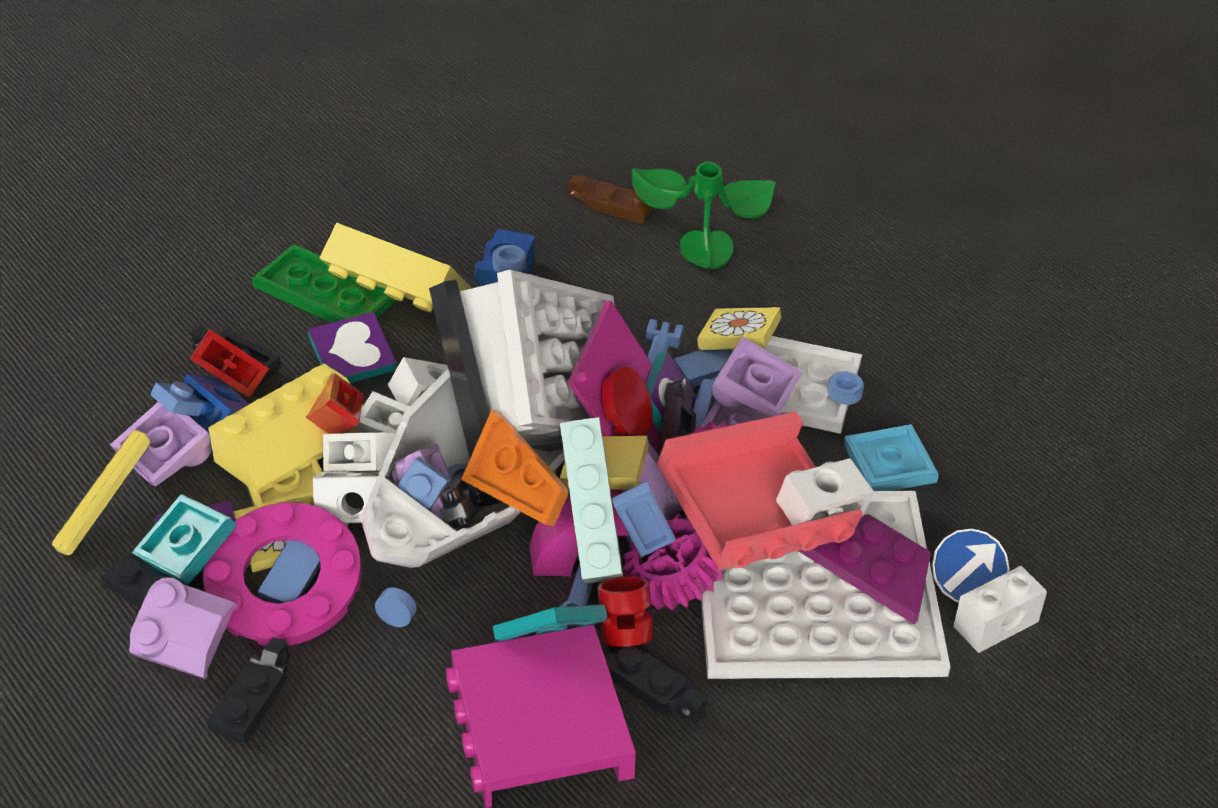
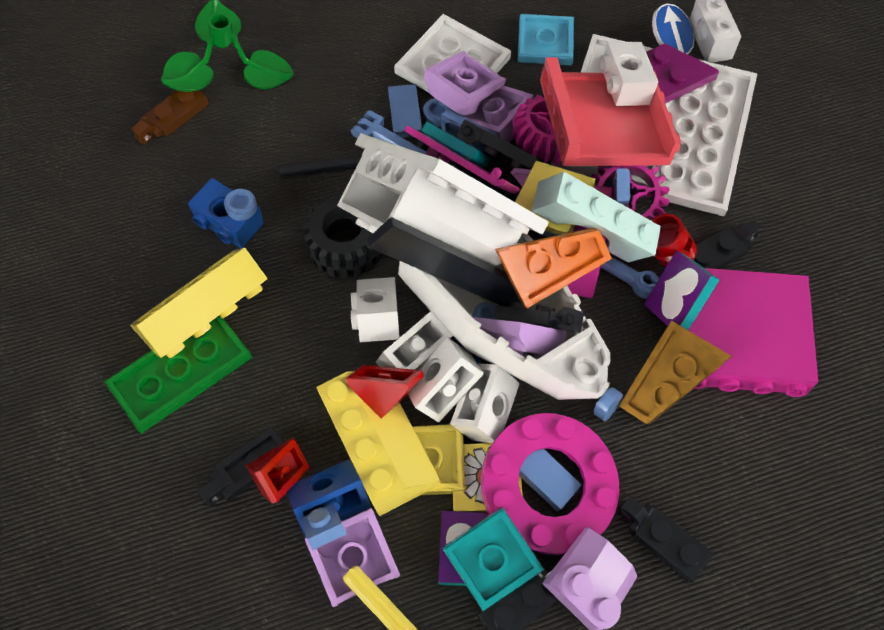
camera: 70 degrees left, 20 degrees up
(353, 347) = (281, 365): tile -> none
(424, 483) = (544, 333): medium blue plate -> none
(444, 637) = (671, 372): none -> pearl gold wing
(626, 402) = (490, 163): red tile -> none
(729, 325) = (384, 76): light yellow tile -> none
(845, 388) = (479, 34): medium blue tile -> none

